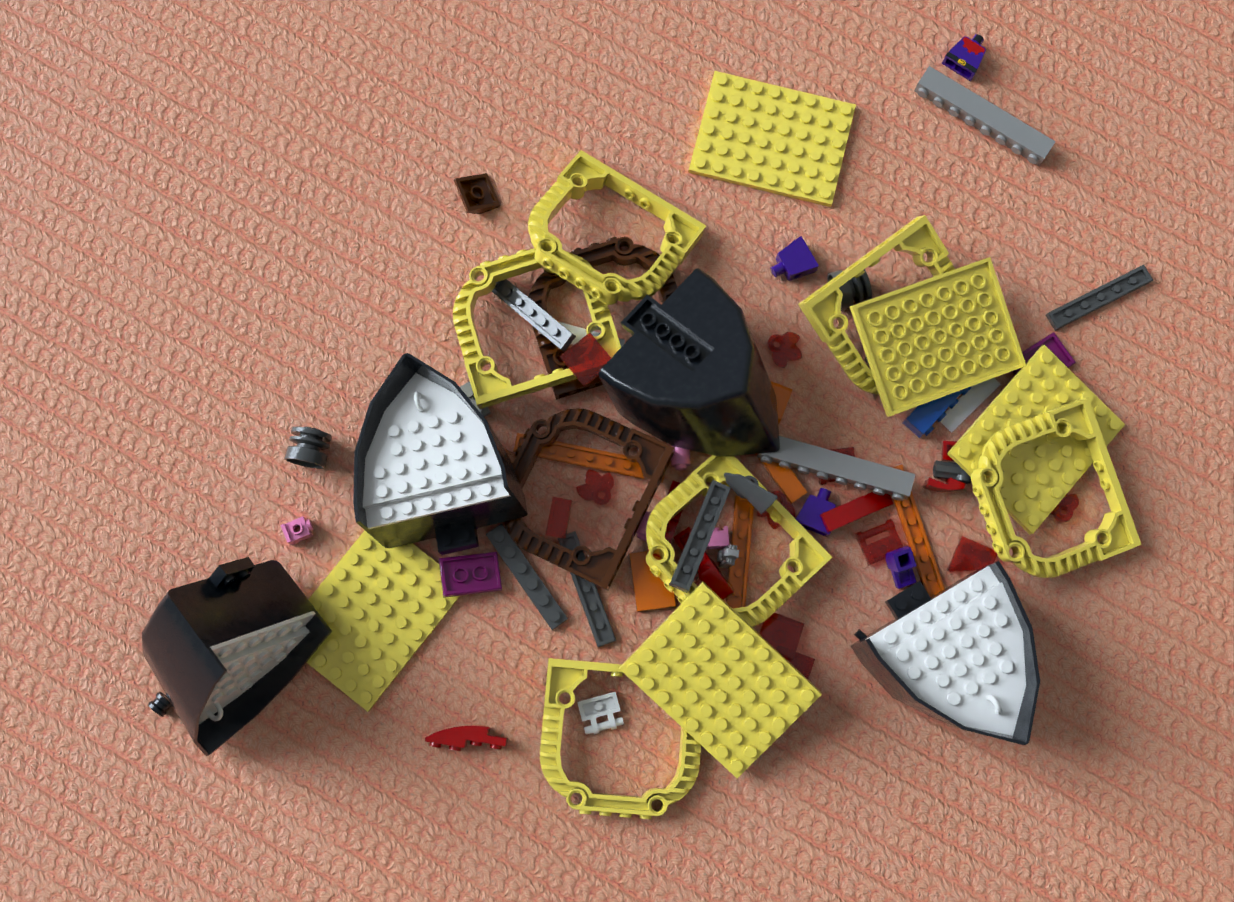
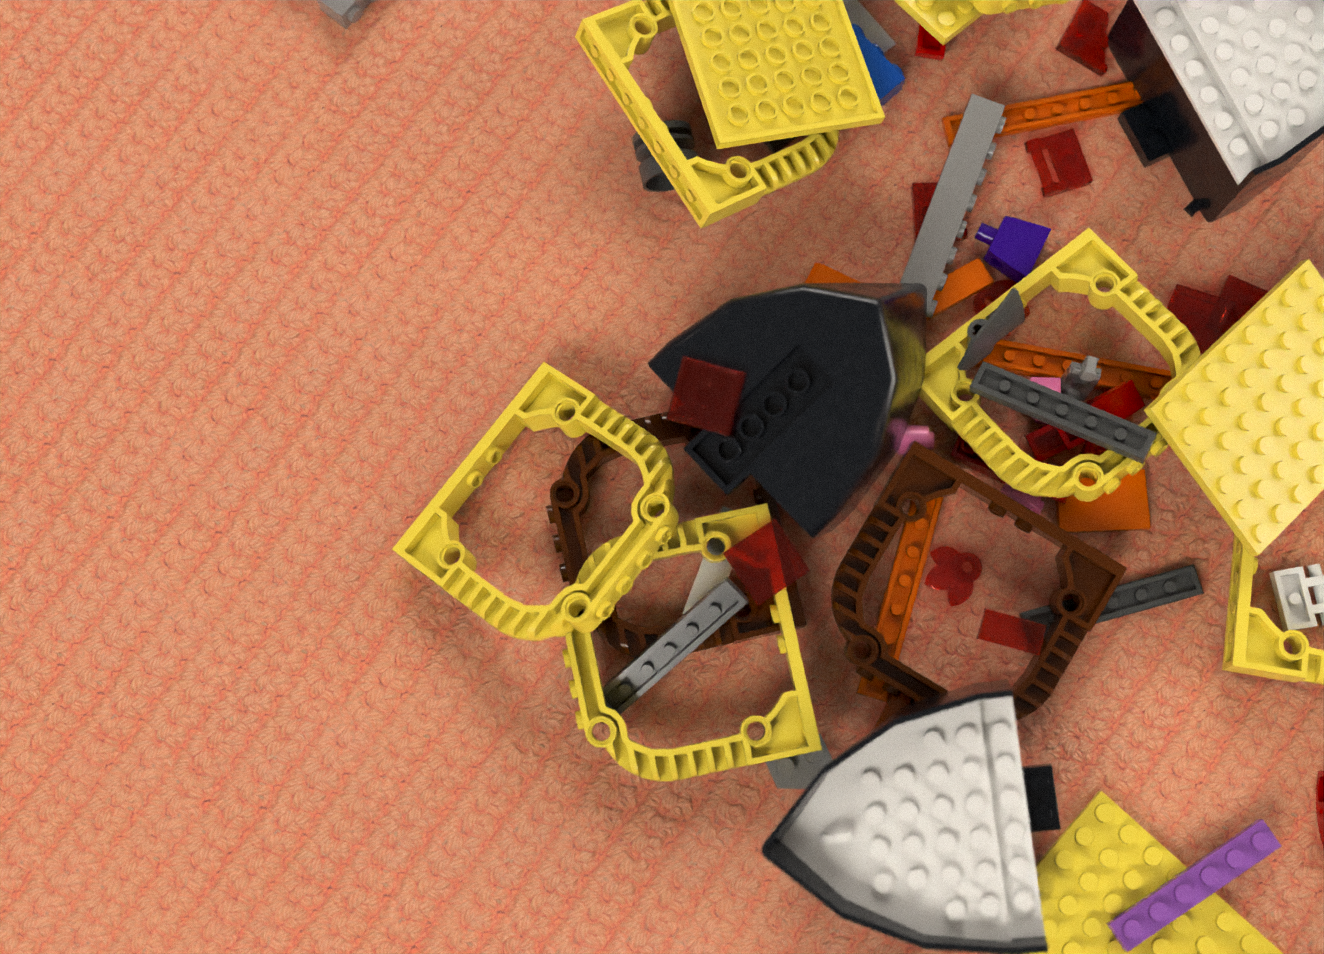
camera: 85 degrees left, 0 degrees up
(412, 643) = (1193, 885): none -> medium lavender plate
(470, 574) = (1086, 784): magenta tile -> none
(477, 193) = (444, 729): reddish brown slope -> none
(527, 577) = (1092, 693): dark grey plate -> none
(679, 301) = (706, 396): none -> clear red tile
(772, 138) = (401, 250): light yellow plate -> none
(786, 350) = (751, 264): clear red plate -> none
(795, 261) = (611, 235): dark purple torso -> none
(854, 510) = (1015, 192): red slope -> none
(901, 564) = (1100, 133): dark purple brick -> none
(950, 470) = (958, 52): dark grey piece -> none
(950, 485) = (981, 55): red slope -> none

